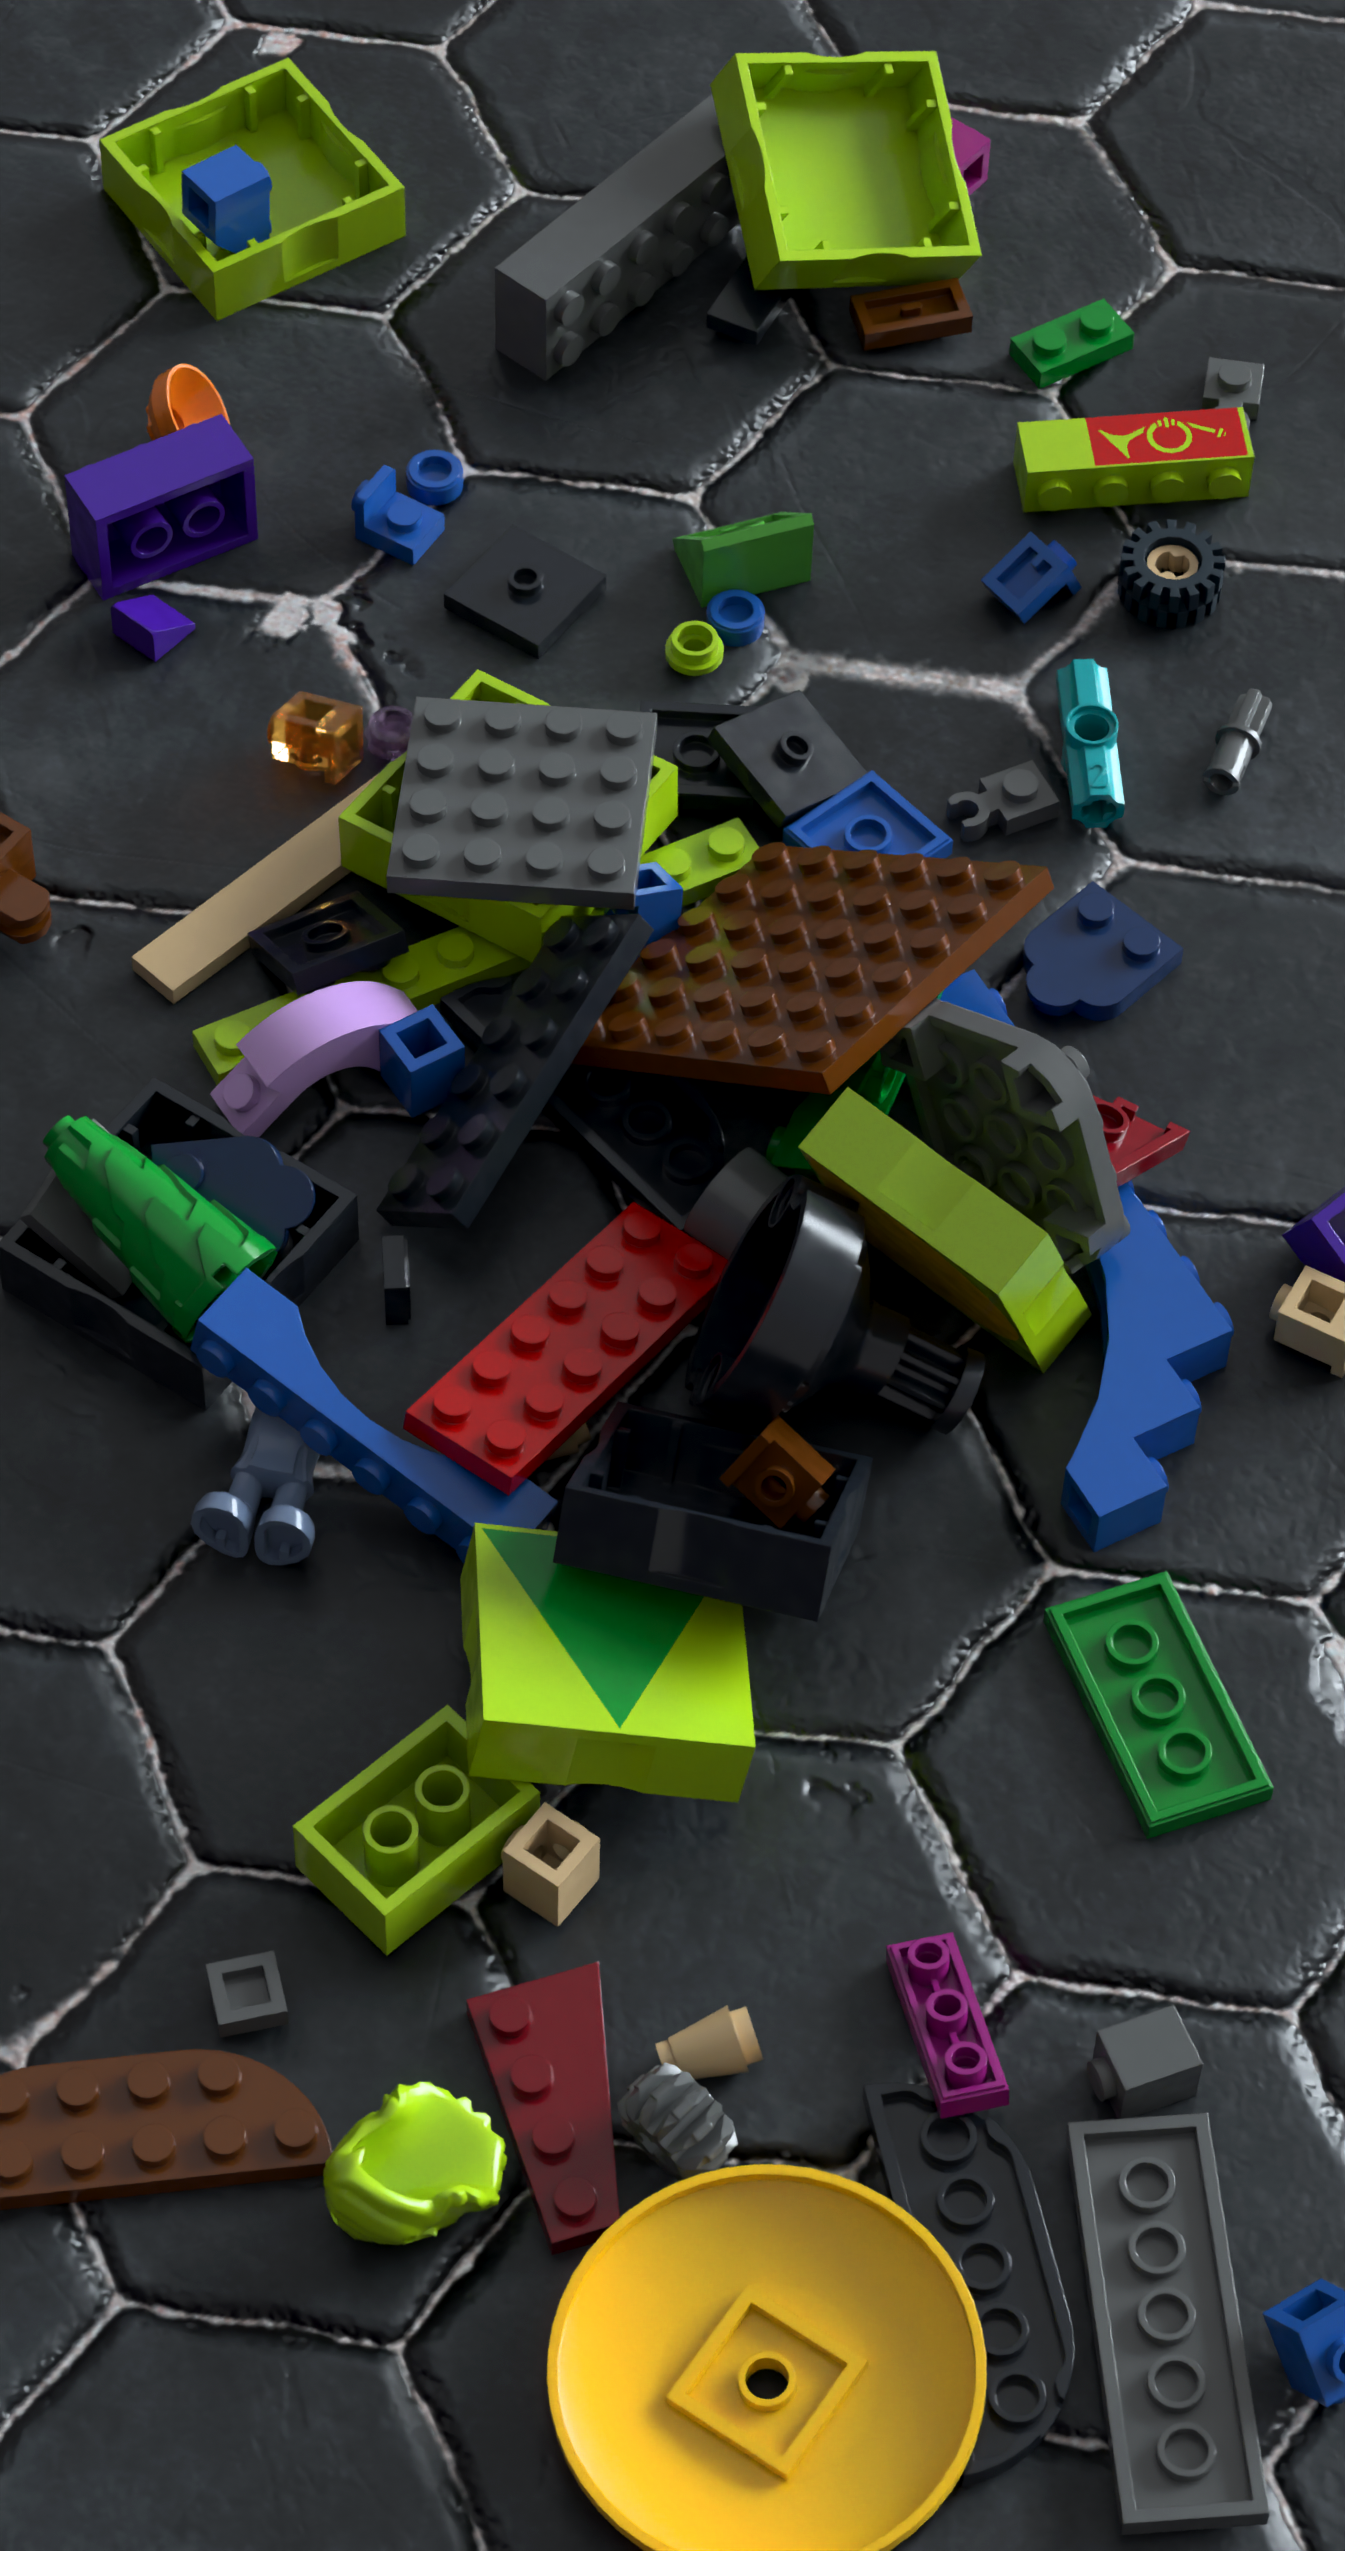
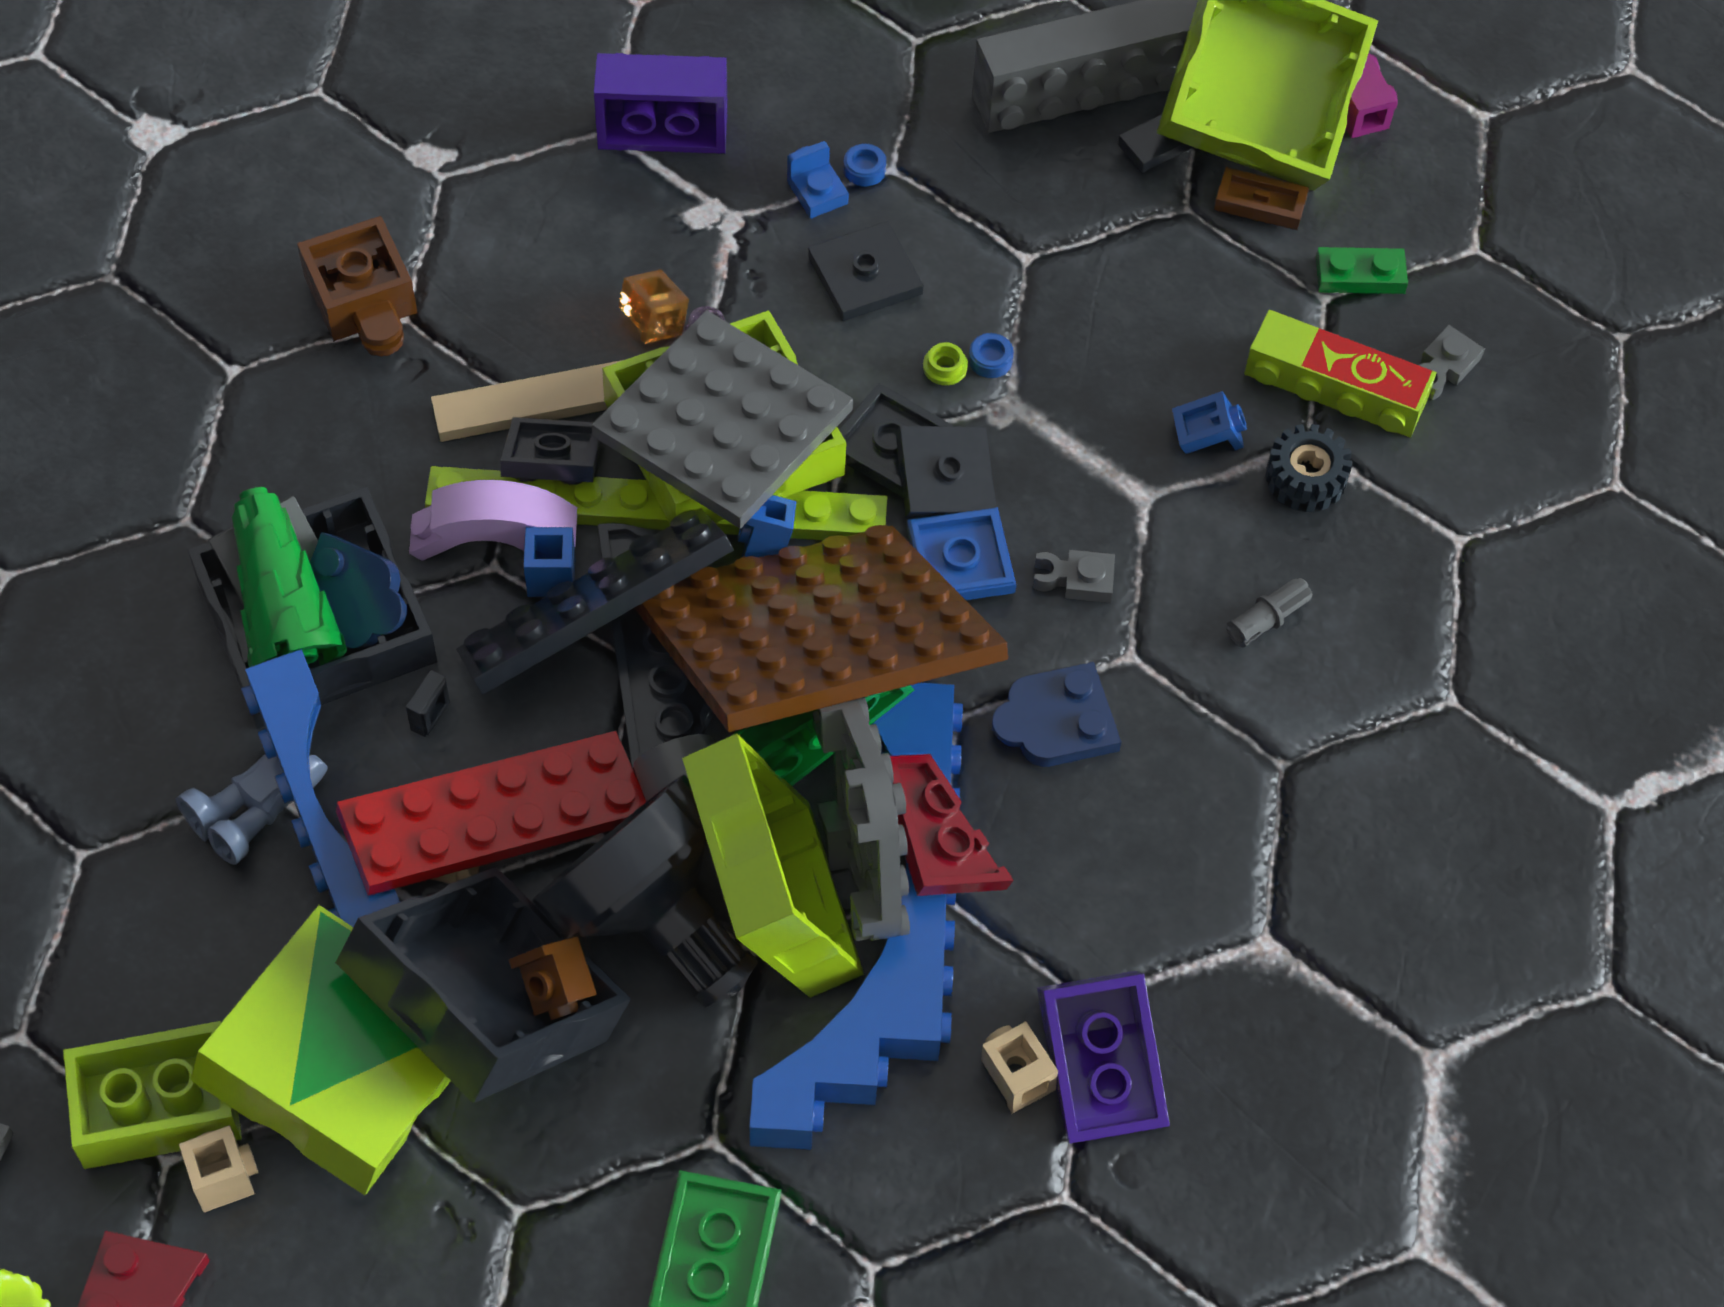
camera: 30 degrees right, 5 degrees up
(149, 625) = (611, 178): dark purple slope -> none
(181, 399) = (739, 44): orange piece -> none
(748, 555) = (1026, 315): bright green slope -> none
(1089, 743) = (1153, 580): teal piece -> none

